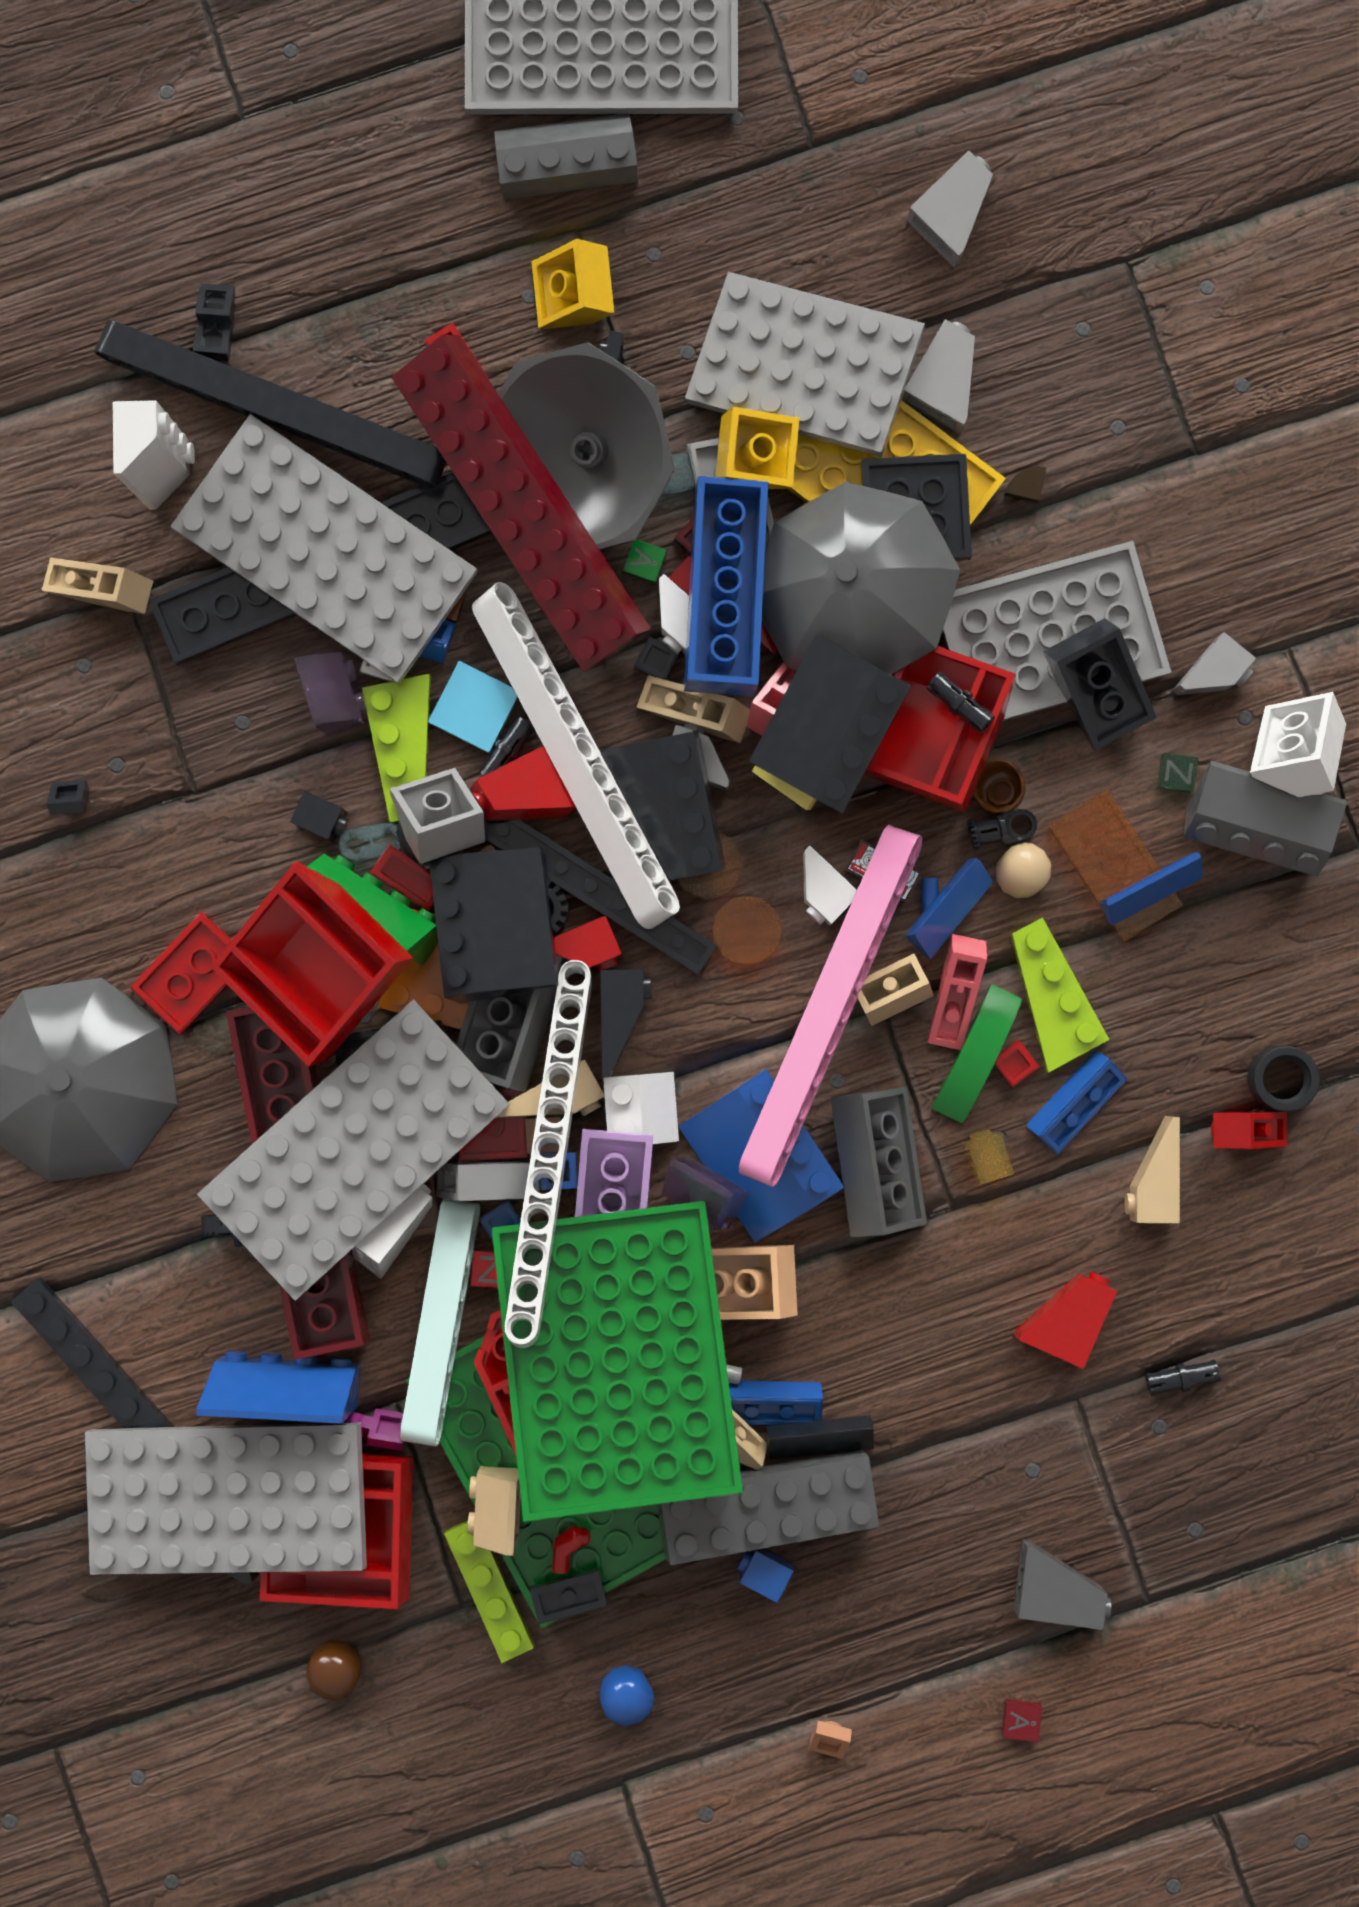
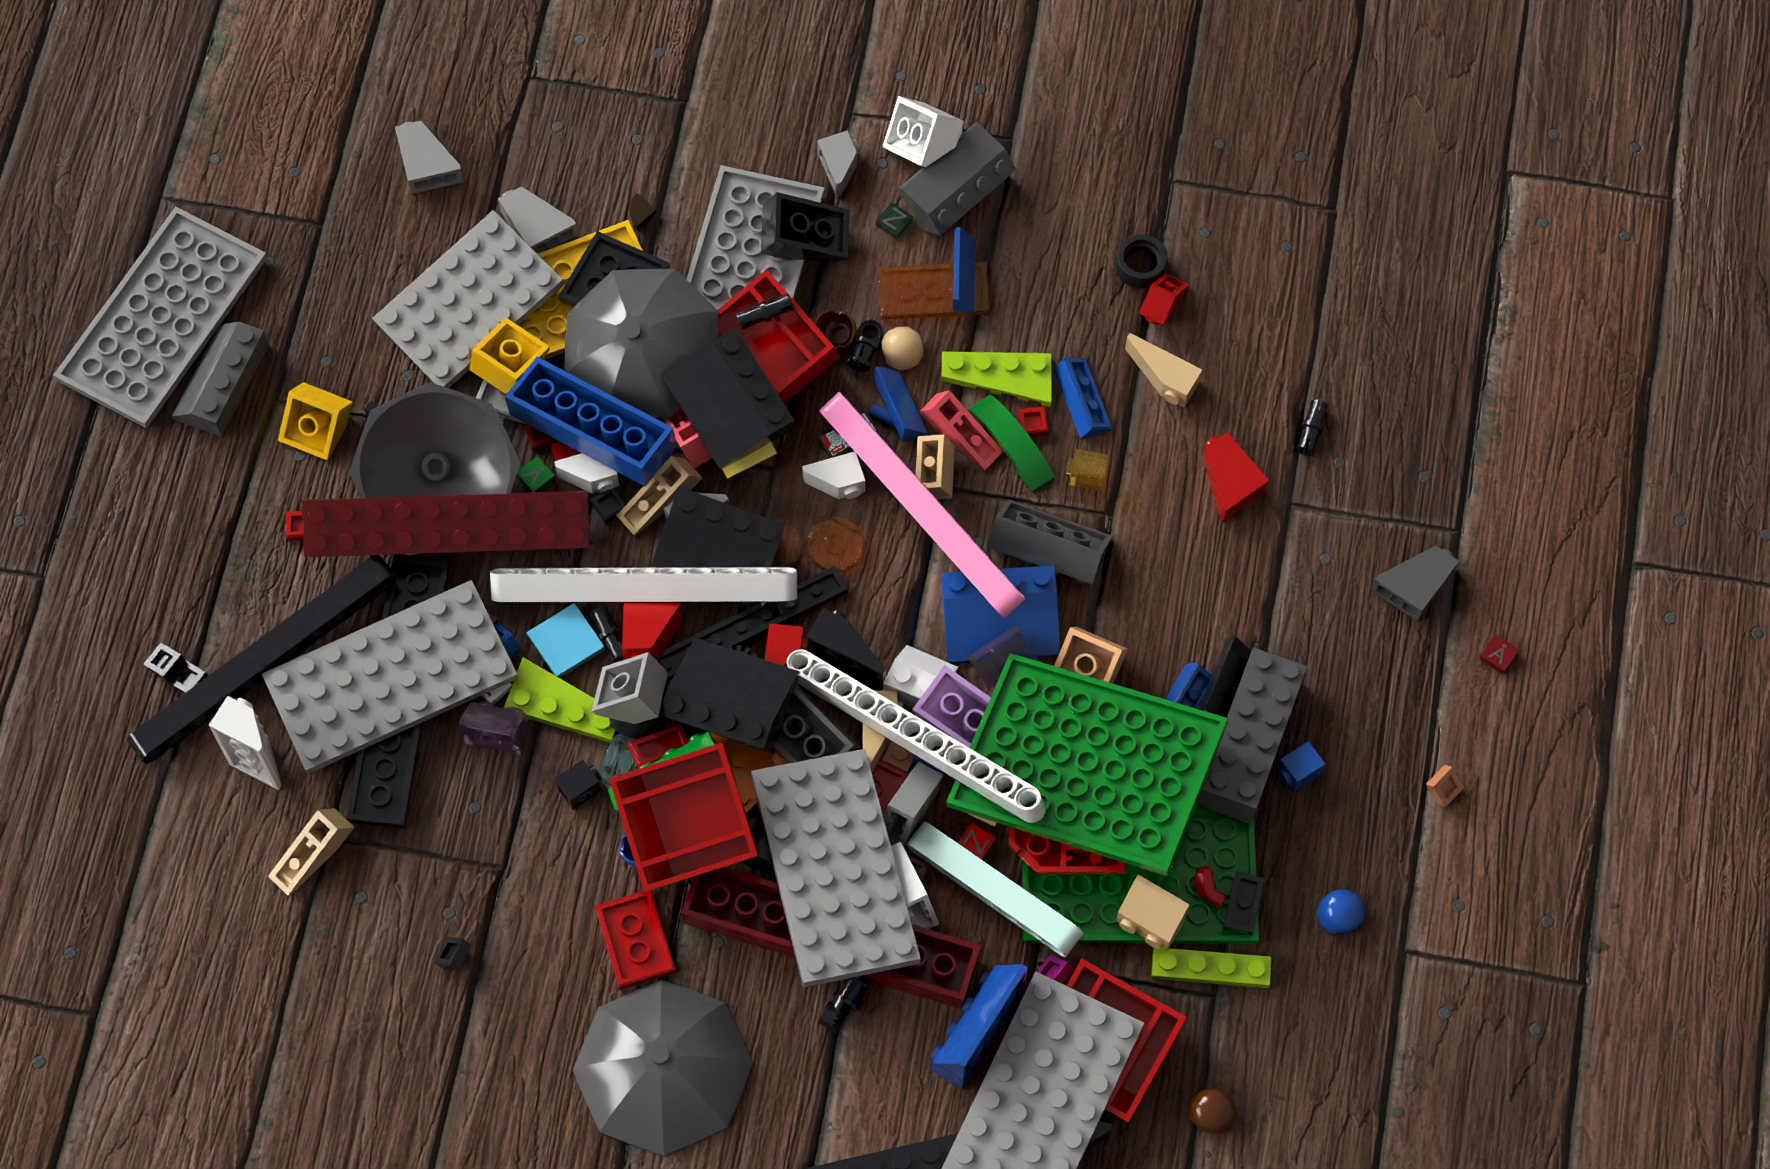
camera: 65 degrees left, 20 degrees down
(500, 1216) = (947, 819): blue tile -> none

